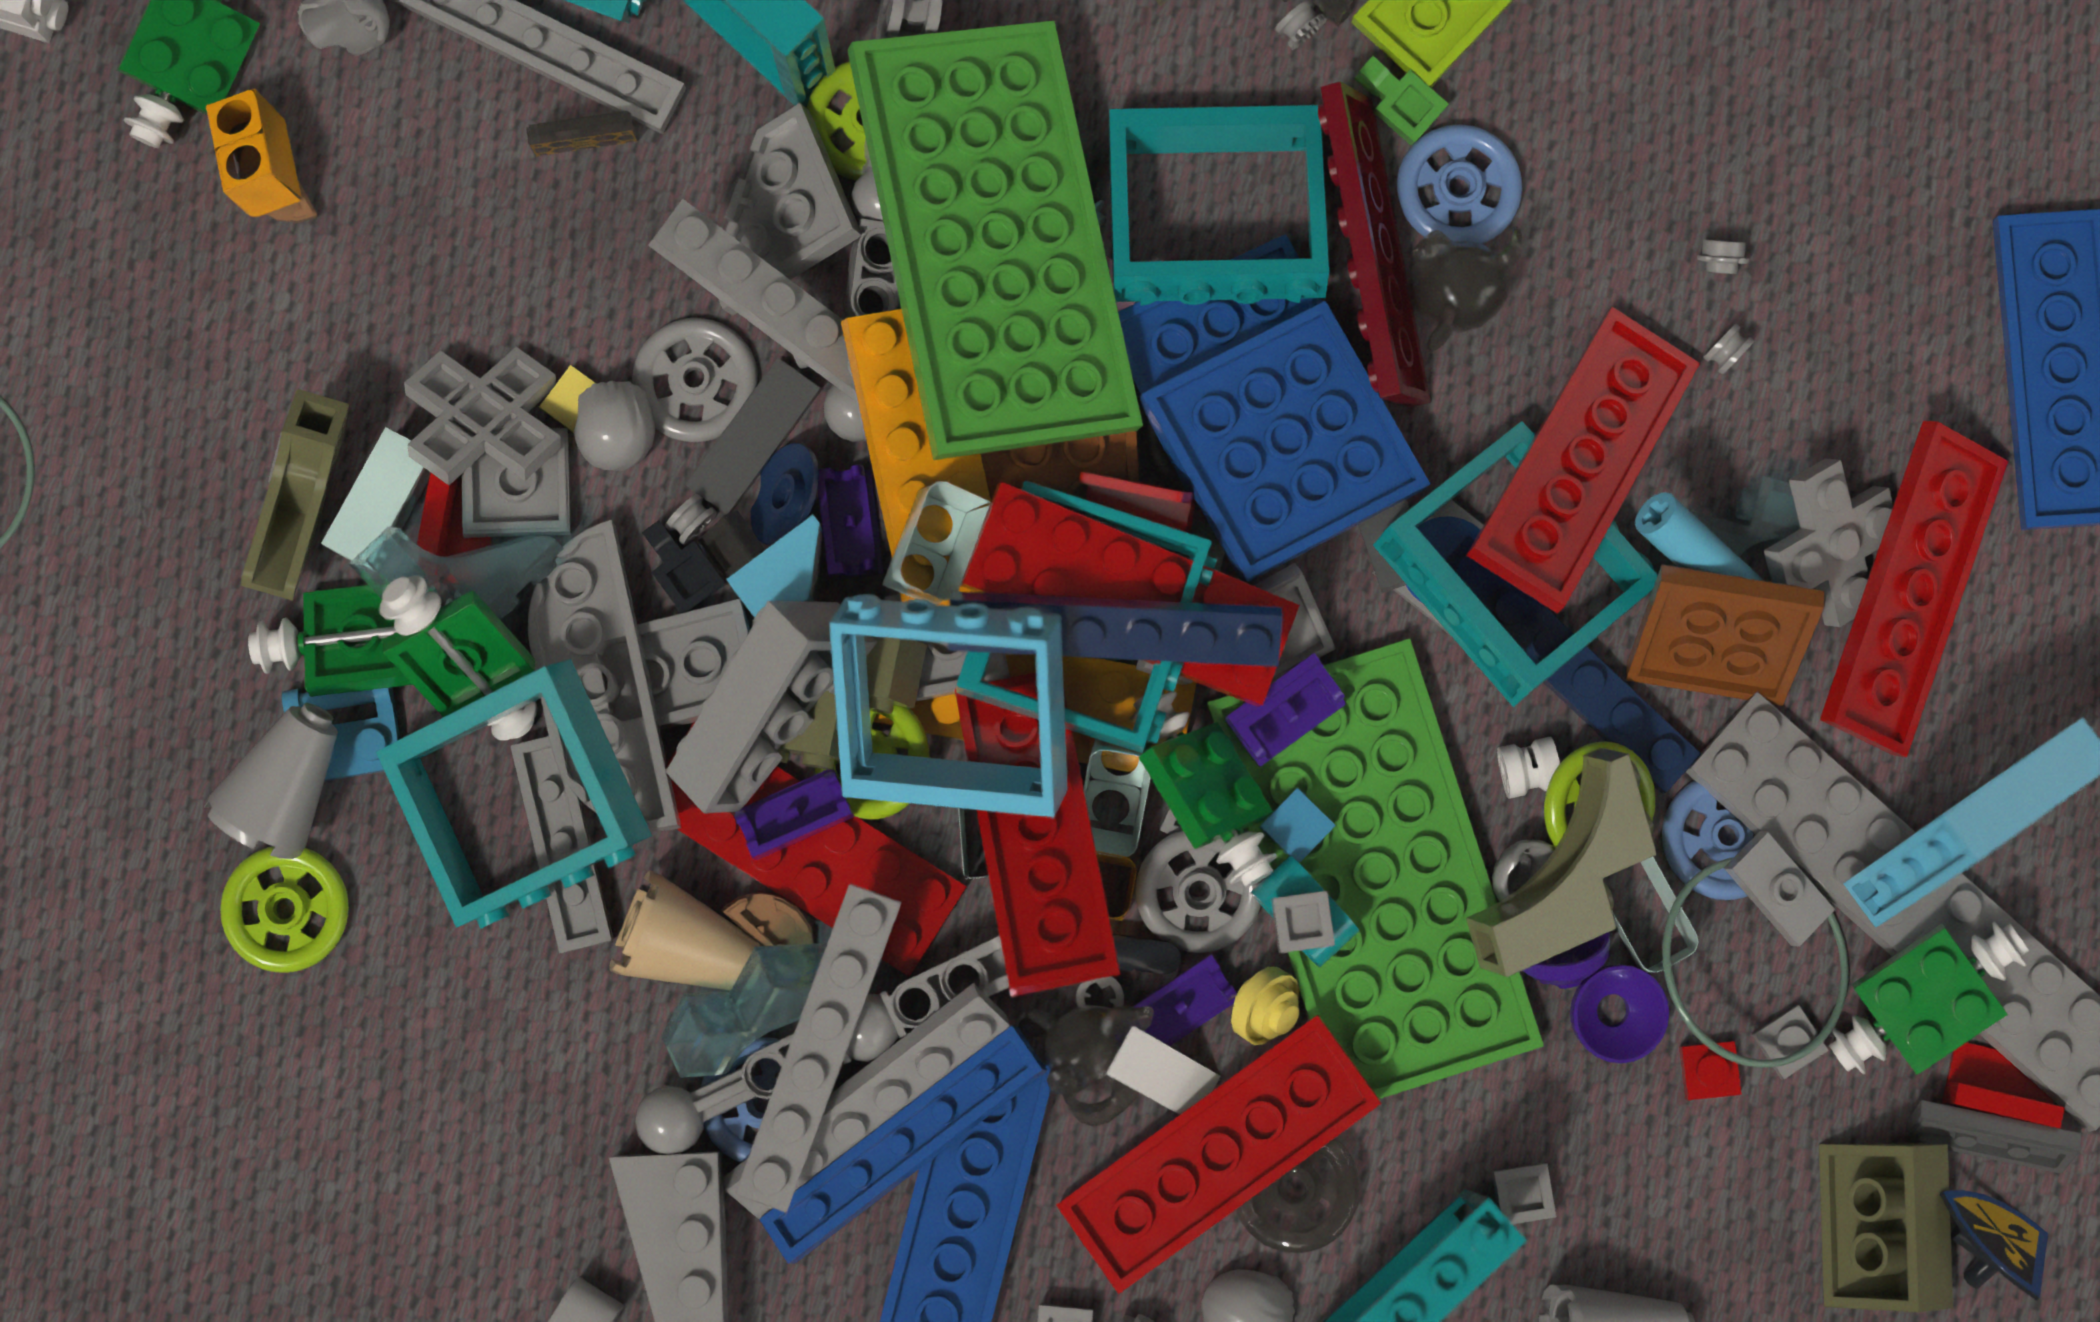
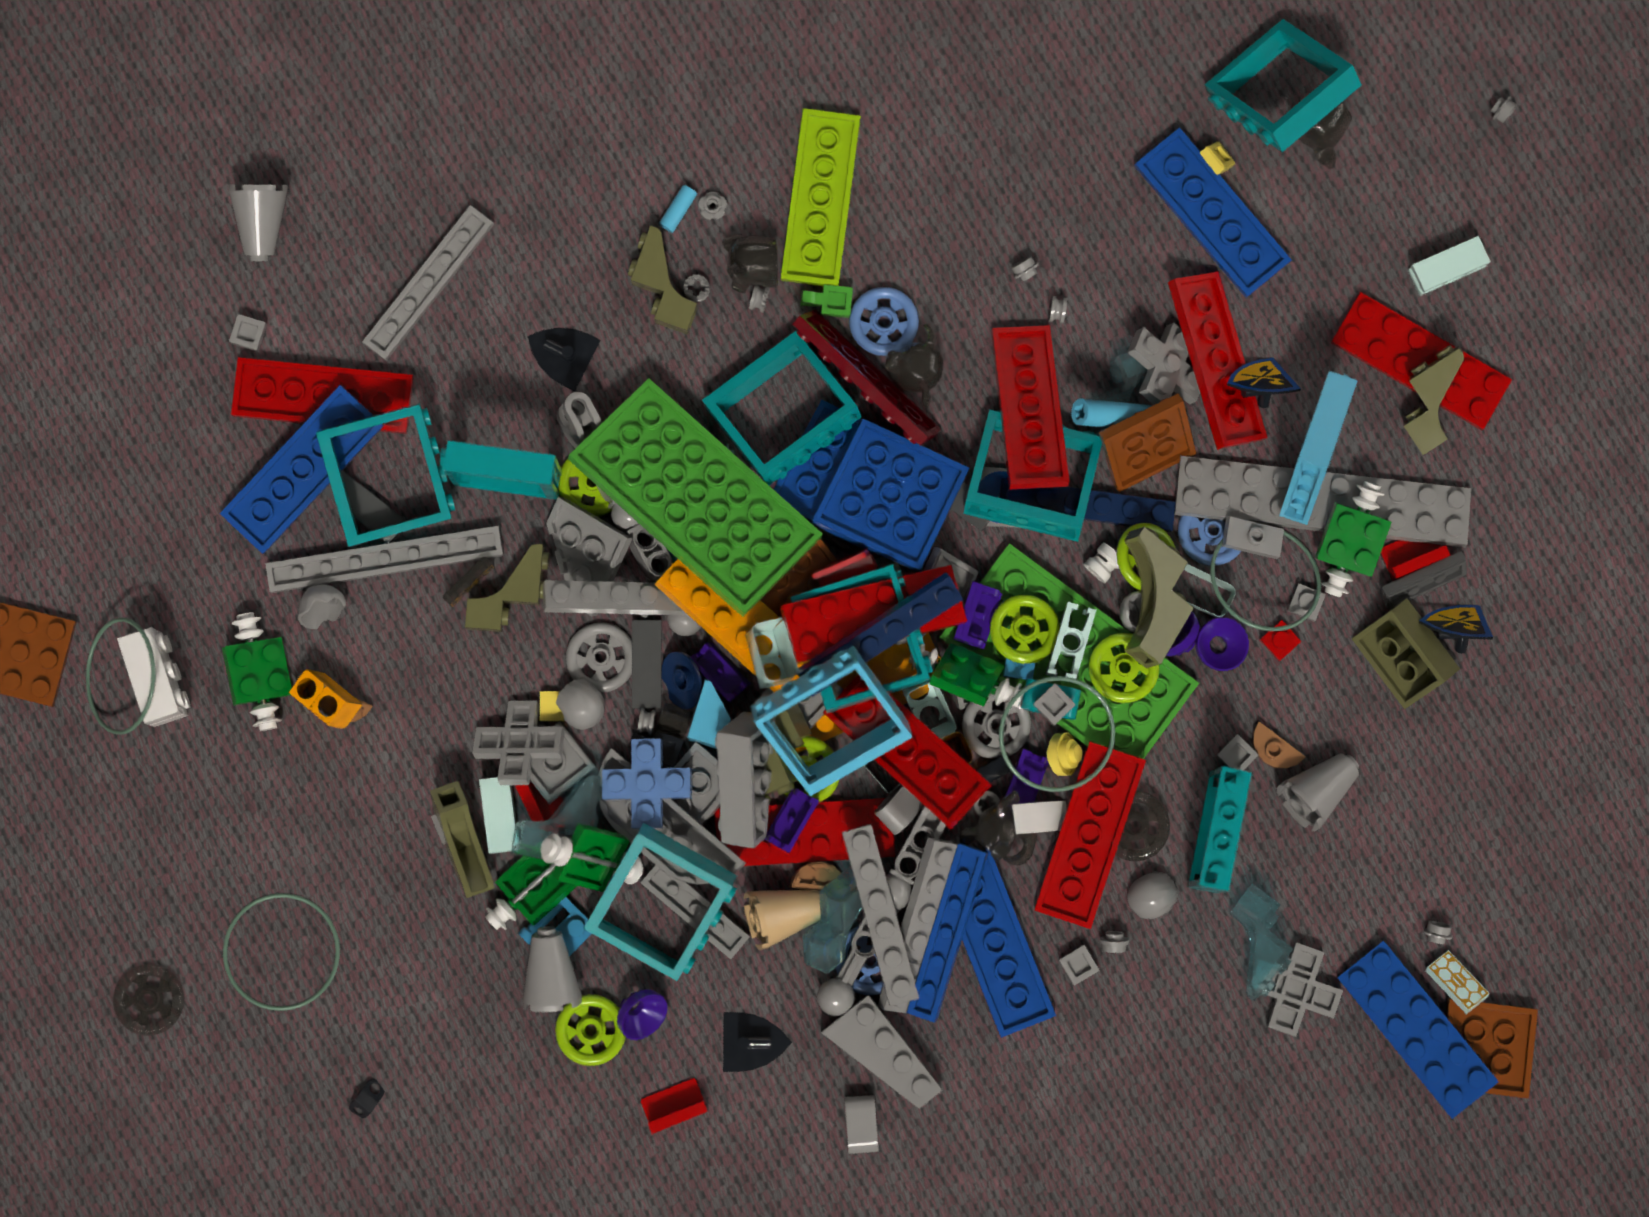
camera: 40 degrees left, 0 degrees up
(322, 1107) = (673, 1105): none -> red panel
(370, 949) = (643, 1019): none -> dark purple piece
(503, 1095) = (750, 1042): none -> black shield
(583, 199) = (522, 587): none -> olive arch
(622, 607) = (646, 783): none -> medium blue plate
(959, 911) = (898, 809): none -> light grey beam
(1172, 967) = (1090, 777): none -> sand green piece
(1312, 813) = (1041, 611): none -> lime plate
(1401, 943) = (1103, 682): none -> lime plate
(1417, 854) = (1082, 637): none -> light aqua piece
(1585, 1226) = (1273, 749): none -> medium nougat plate
(1960, 665) = (1262, 379): none -> shield

